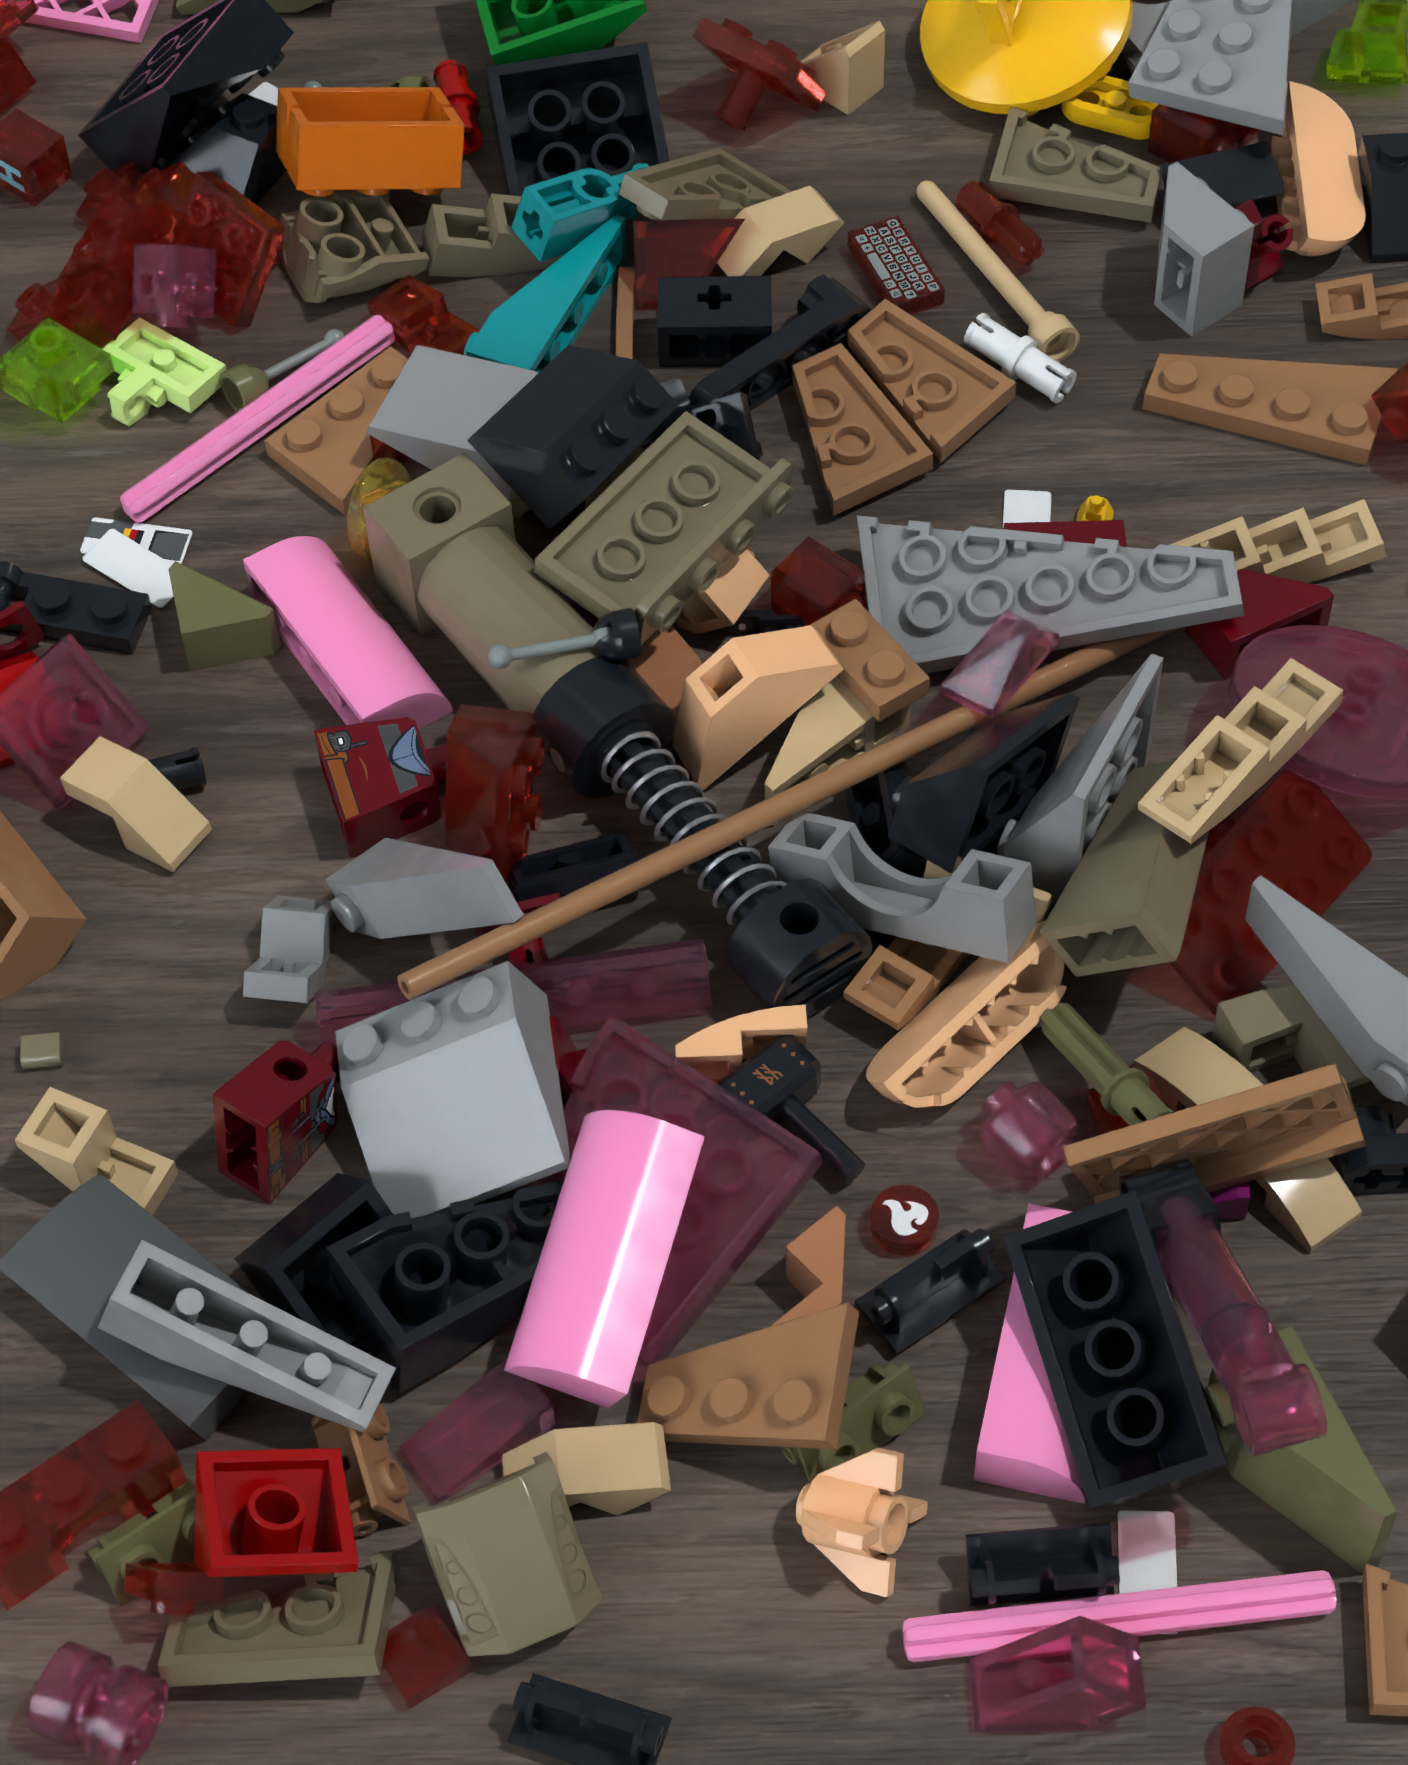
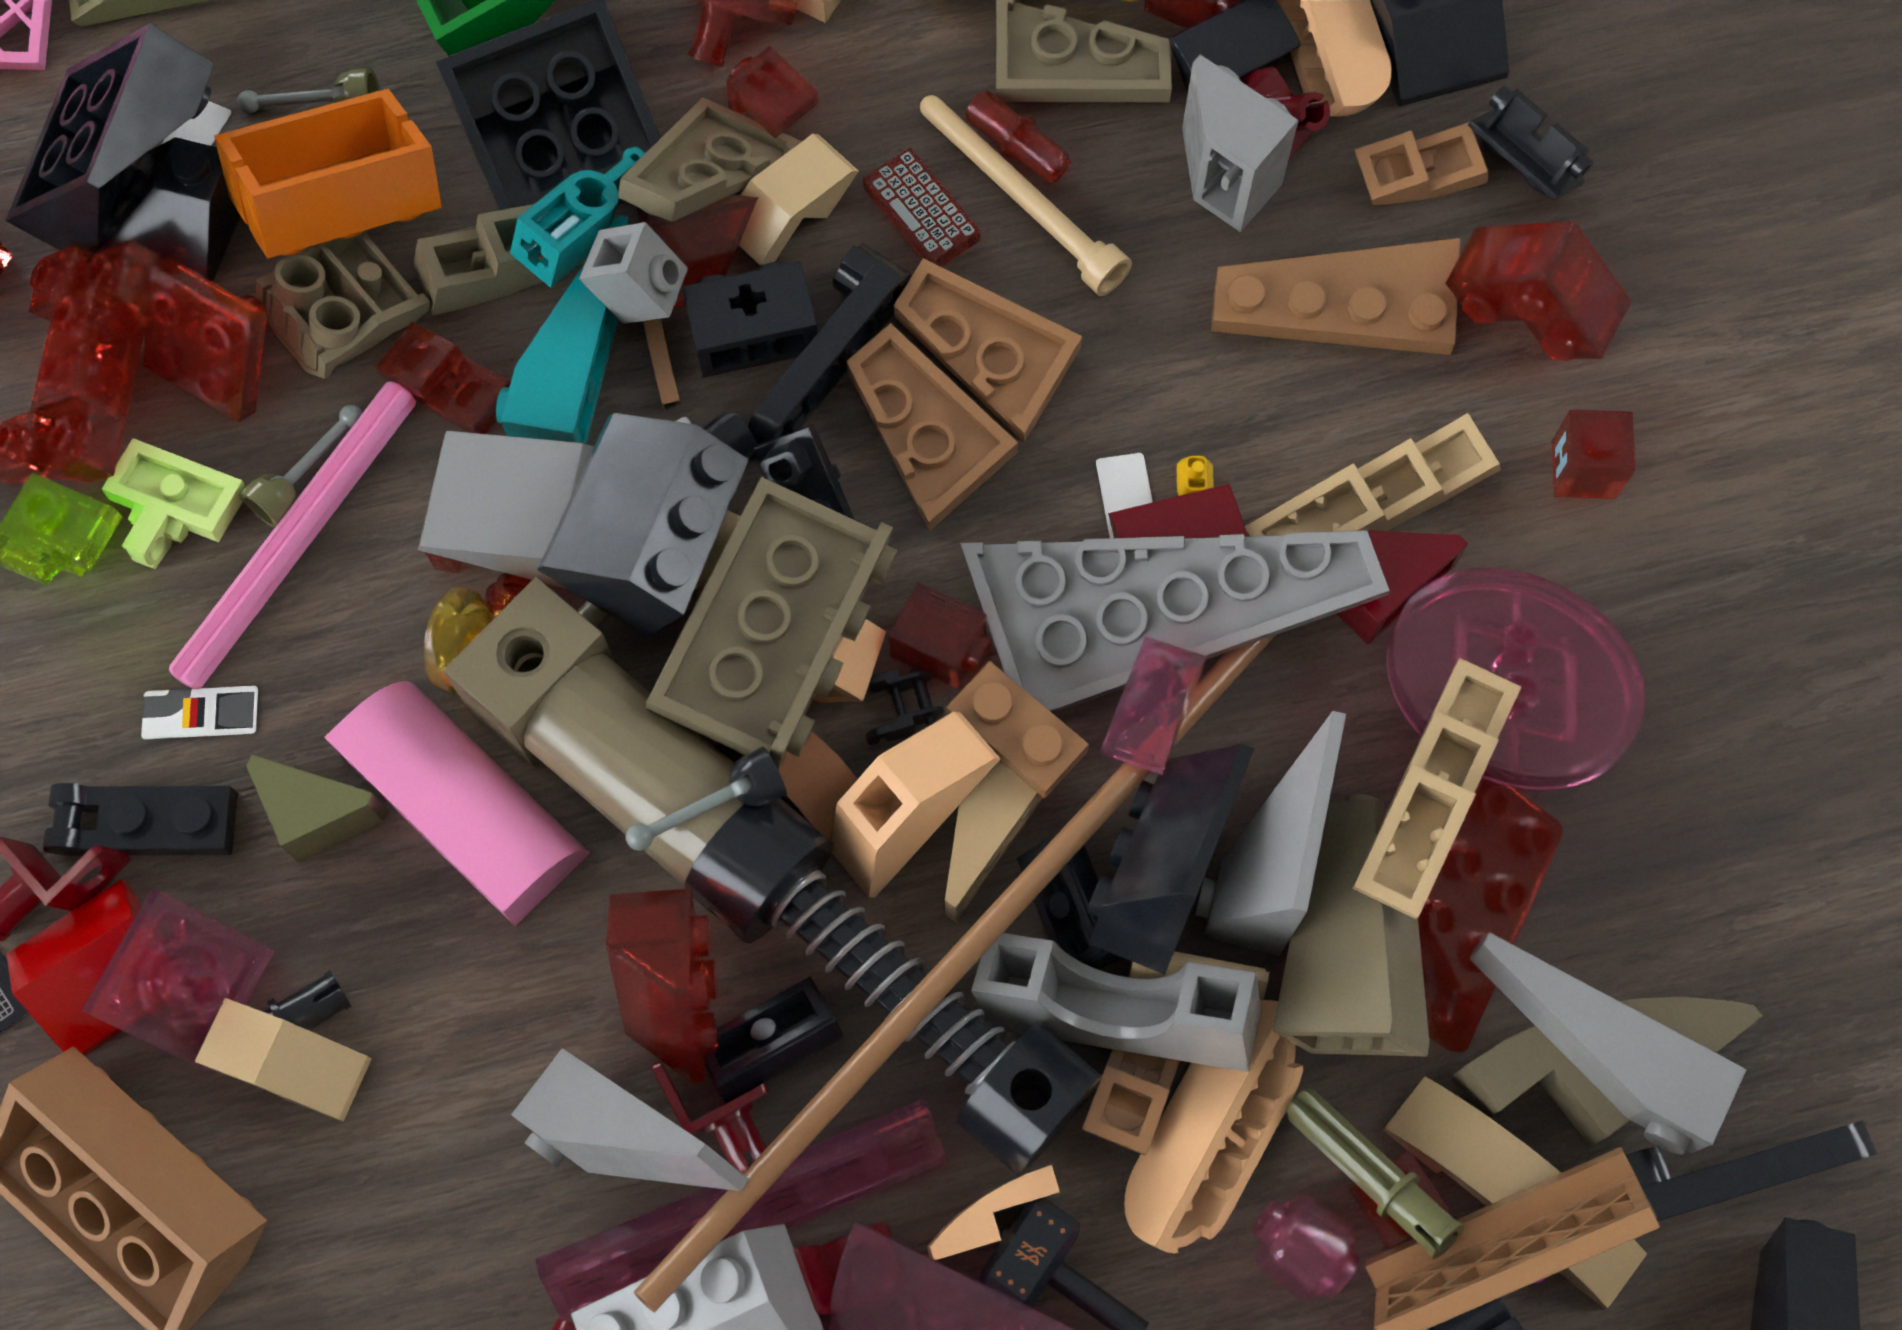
camera: 15 degrees left, 15 degrees up
(132, 566) = (206, 746): white sticker -> none
(173, 283) = (160, 398): clear pink brick -> none
(292, 950) = (496, 1200): light grey slope -> none
(329, 440) = (378, 537): medium nougat wing -> none
(380, 780) = (538, 970): dark red torso -> none
(455, 86) = (412, 91): red pin -> none
(617, 256) = (633, 273): none -> light grey brick
(780, 149) = (770, 91): none -> clear red bracket
(1020, 358) = (1076, 300): white pin -> none

